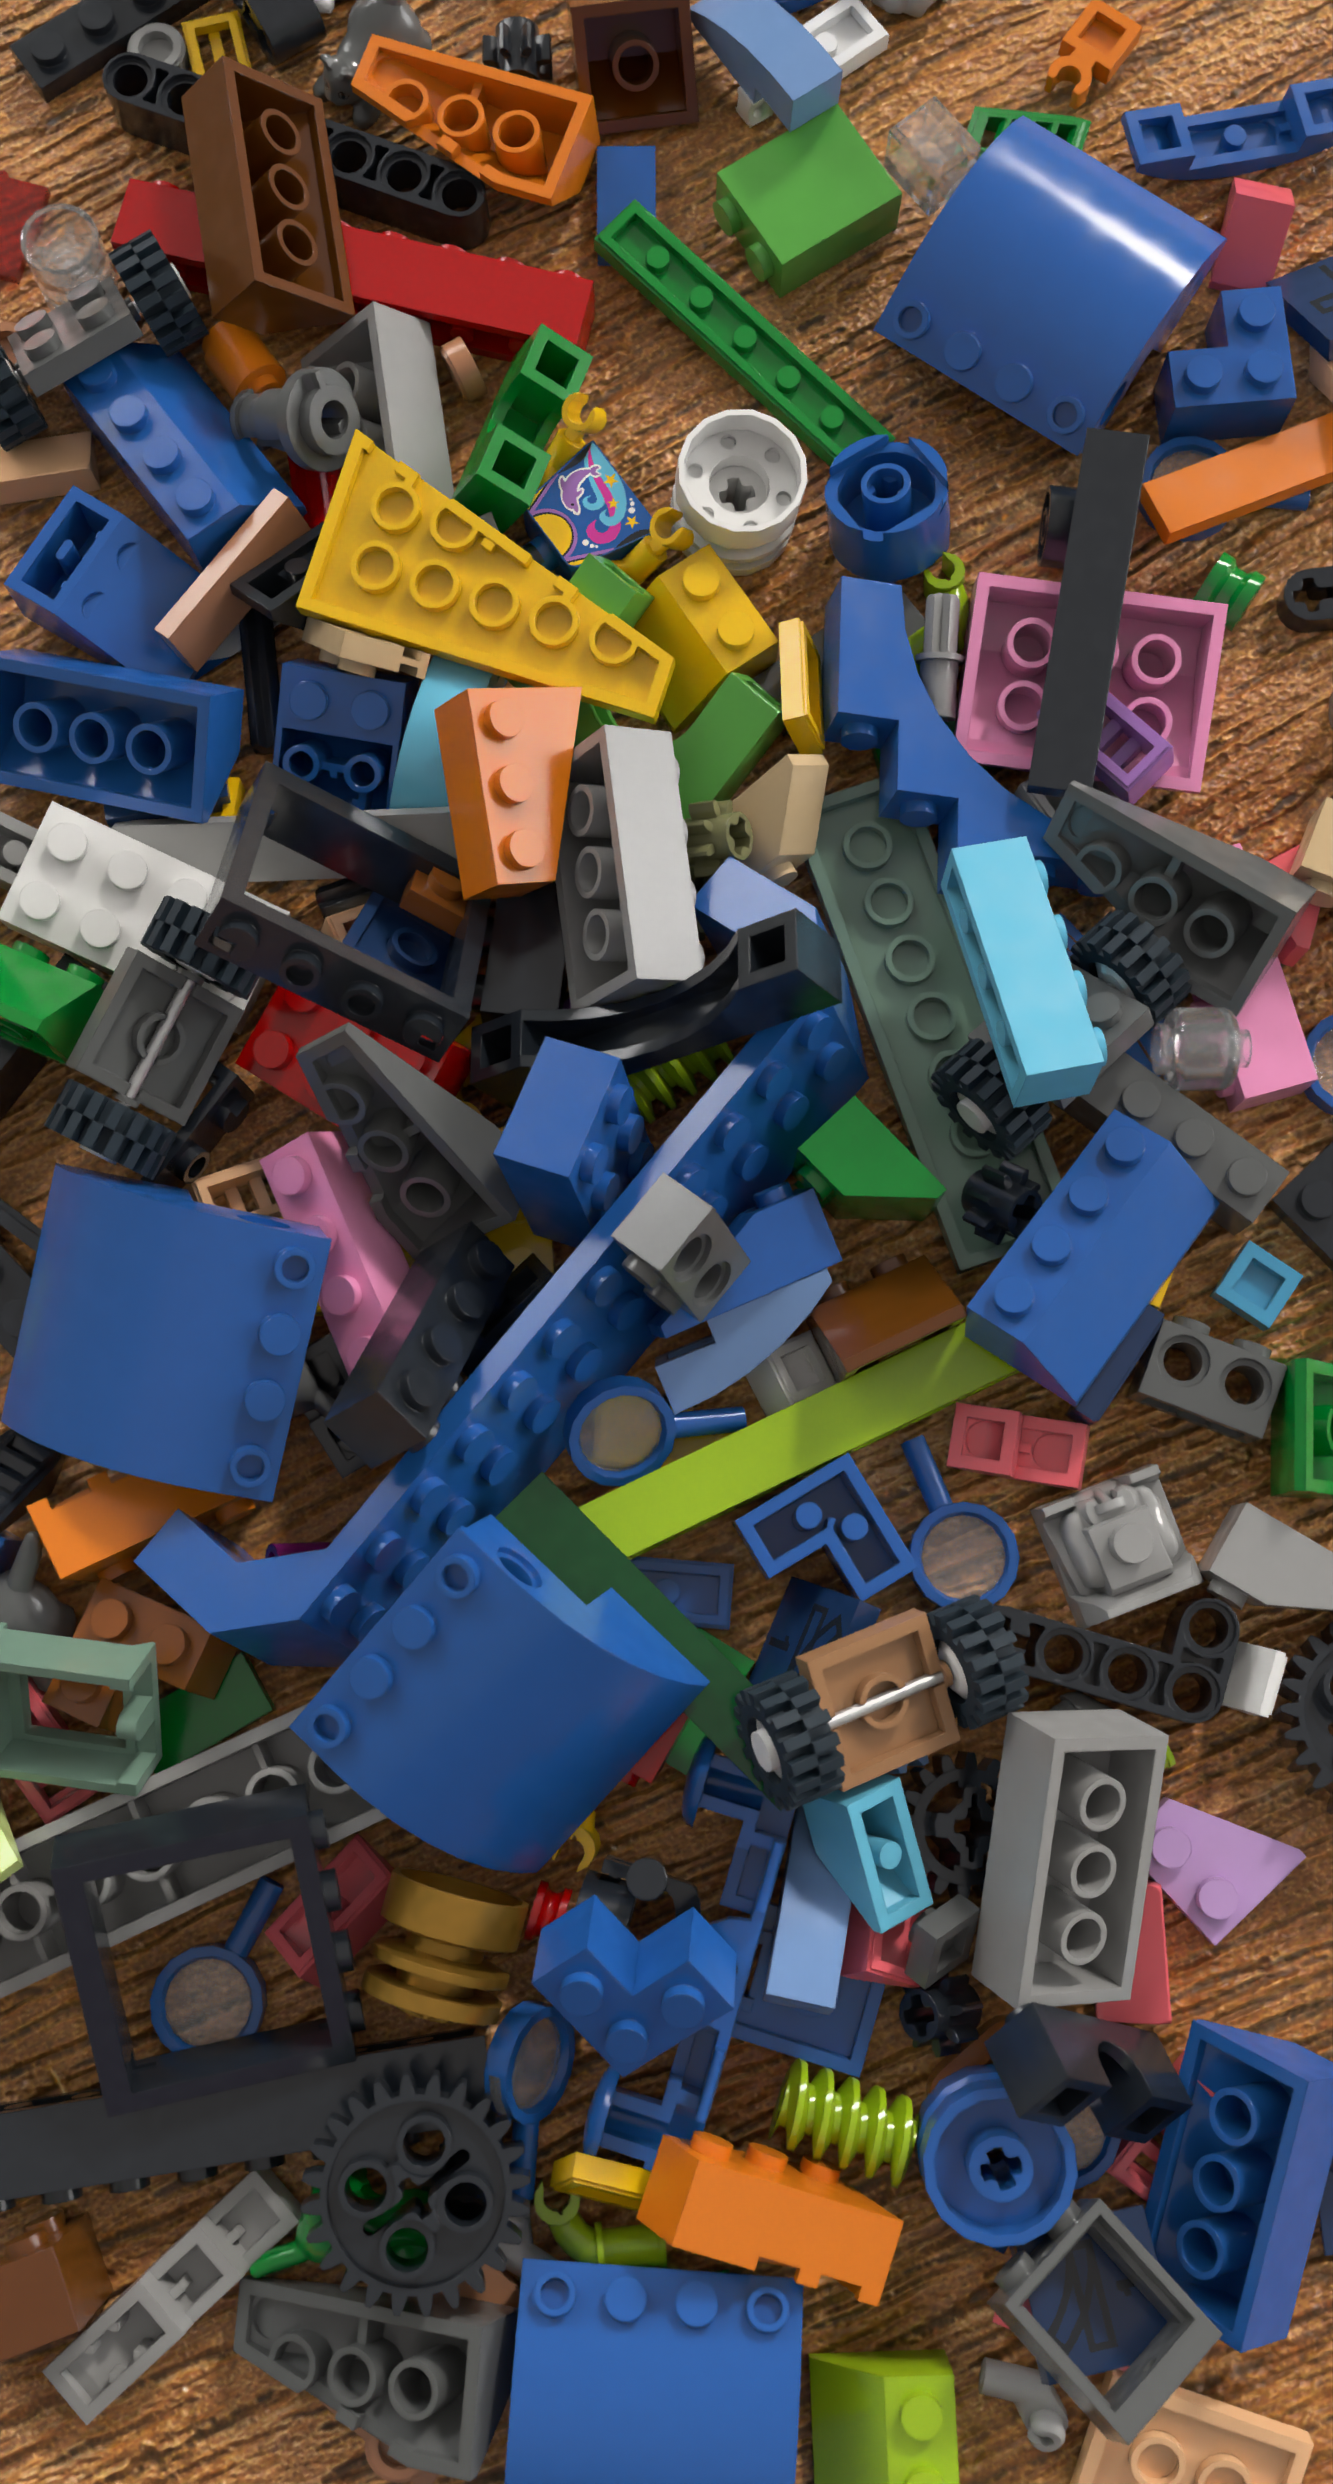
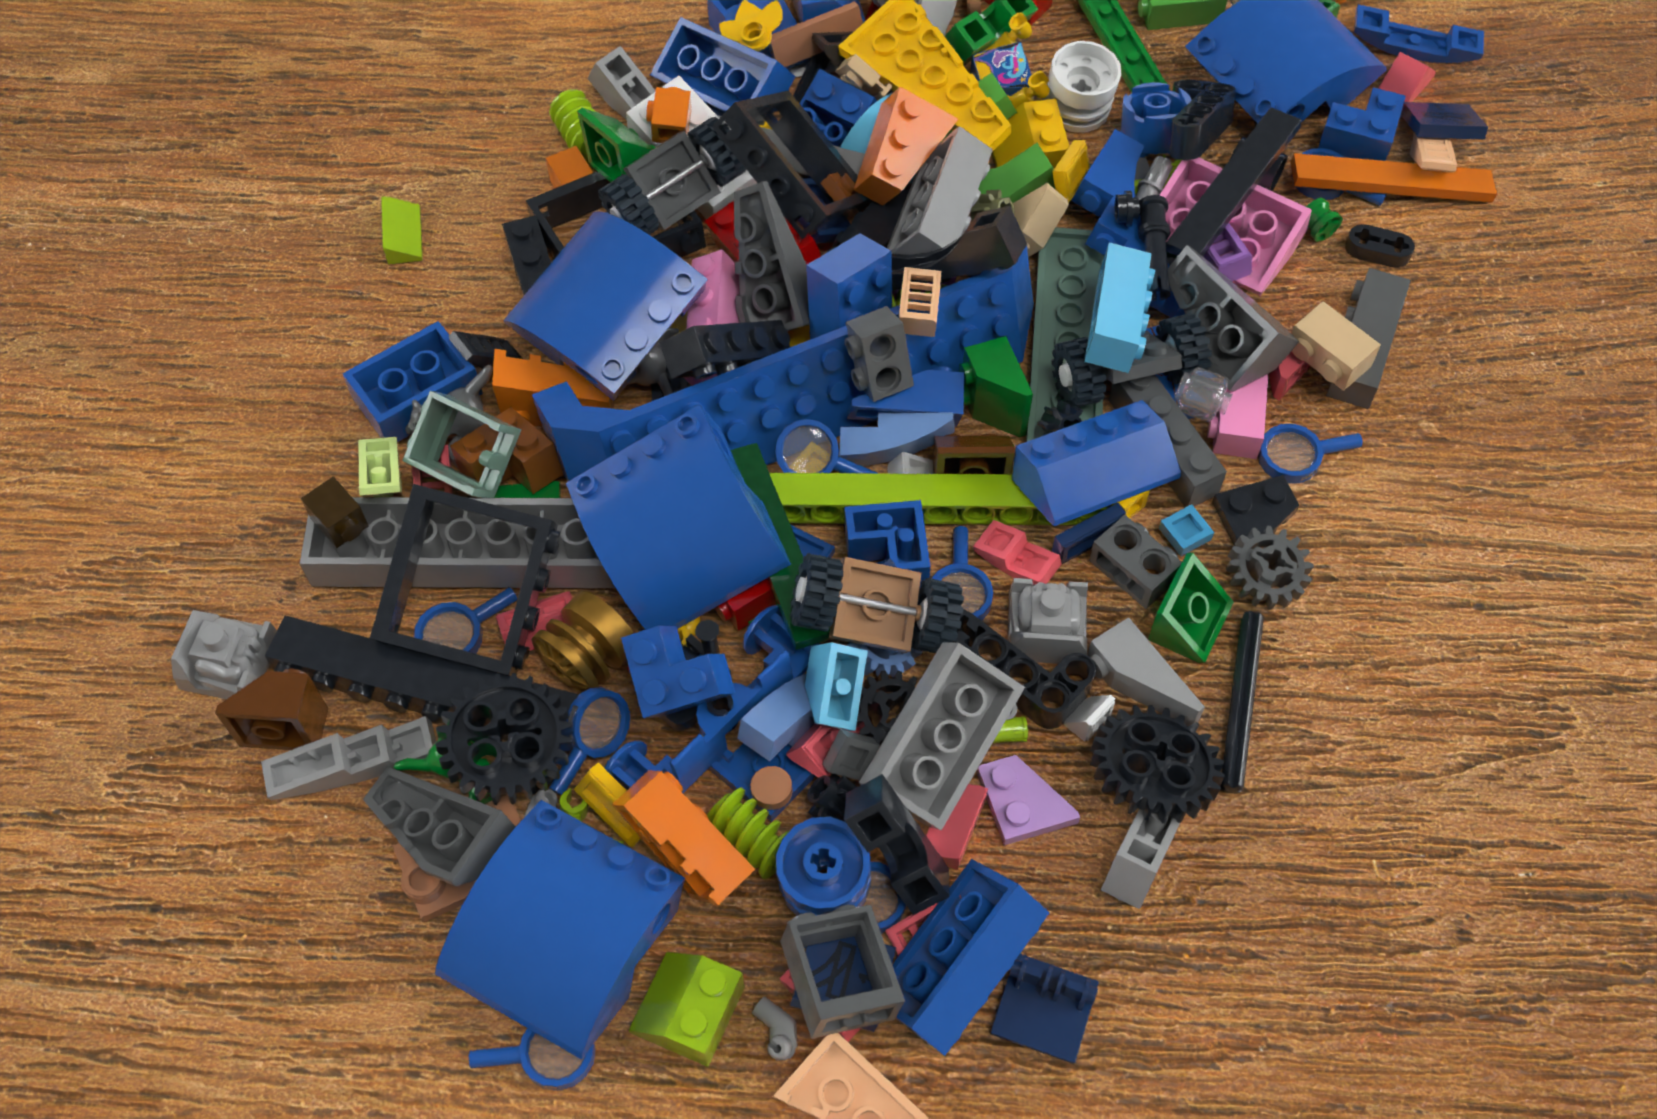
camera: 25 degrees right, 20 degrees down
(84, 904) = (669, 113): none -> orange brick
(117, 612) = (752, 25): none -> yellow plate
(722, 1174) = (920, 323): none -> light nougat slope
(844, 2040) = (771, 787): none -> nougat tile
(938, 748) = (1126, 208): none -> black plate
(973, 441) = (1202, 119): none -> black beam
(1001, 774) = (1154, 233): none -> black pin

